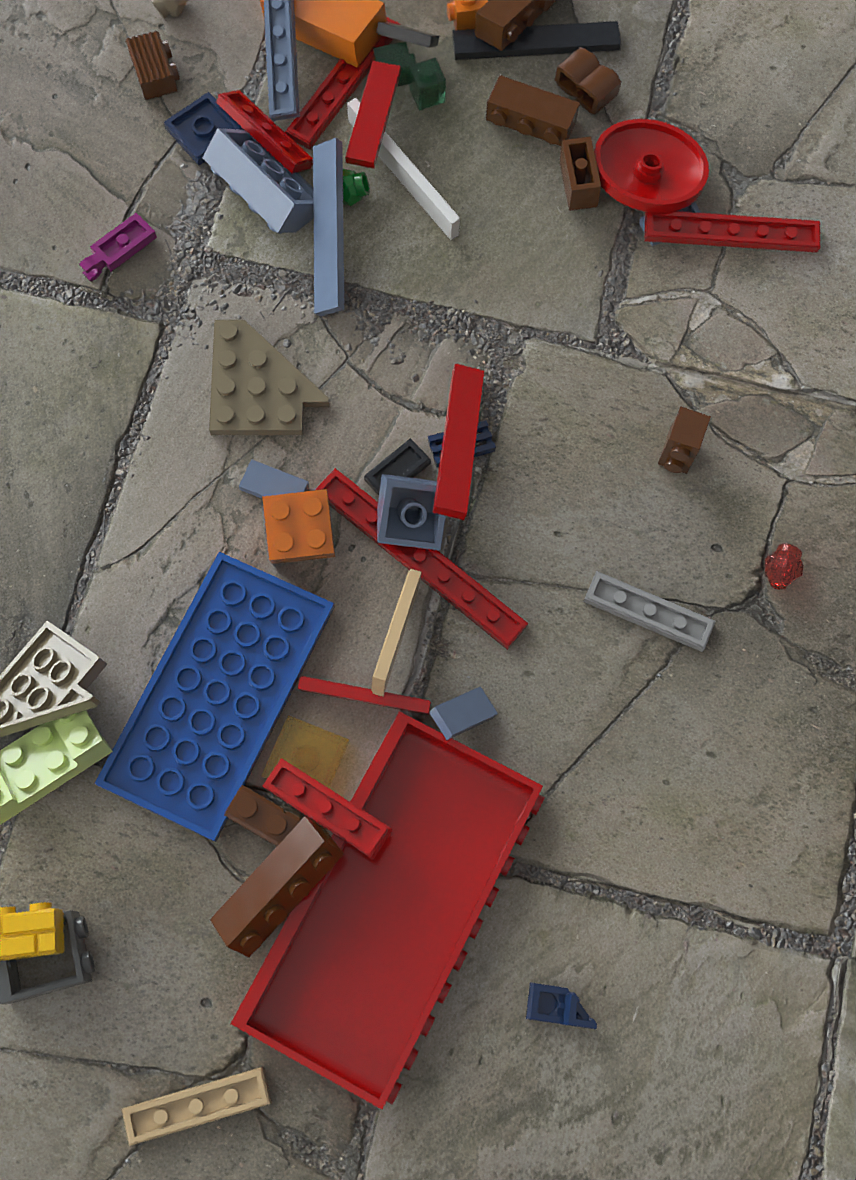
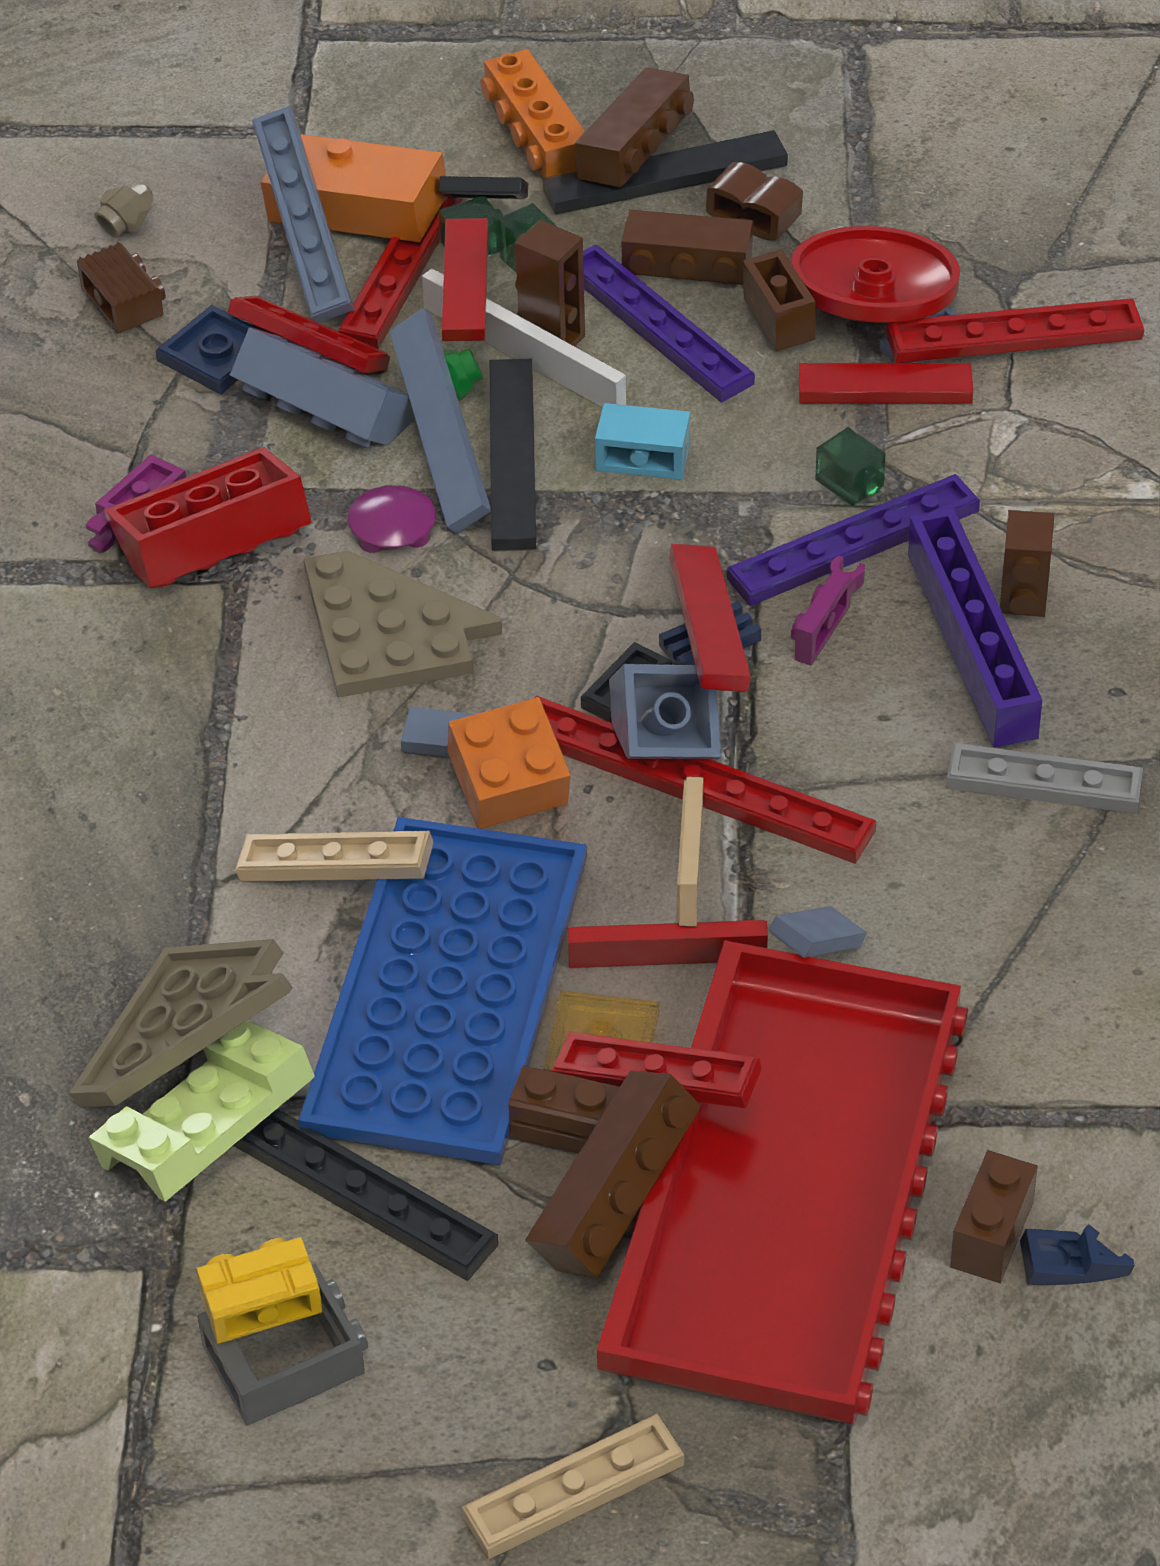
camera: 10 degrees left, 25 degrees down
(130, 846) = (370, 1194): none -> black tile
(158, 274) = (209, 517): none -> red slope
(171, 574) = (335, 856): none -> tan tile
(281, 296) = (391, 518): none -> magenta dish
(372, 260) = (512, 455): none -> black tile
(426, 135) = (551, 281): none -> reddish brown brick
(459, 271) = (642, 441): none -> medium azure brick
(498, 169) = (664, 326): none -> dark purple tile
(516, 970) = (993, 1216): none -> reddish brown brick
(544, 439) = (825, 611): none -> magenta plate
(577, 382) = (851, 538): none -> dark purple tile
(591, 324) = (850, 466): none -> clear green brick
(634, 254) = (886, 383): none -> red tile
(634, 484) = (974, 628): none -> dark purple brick

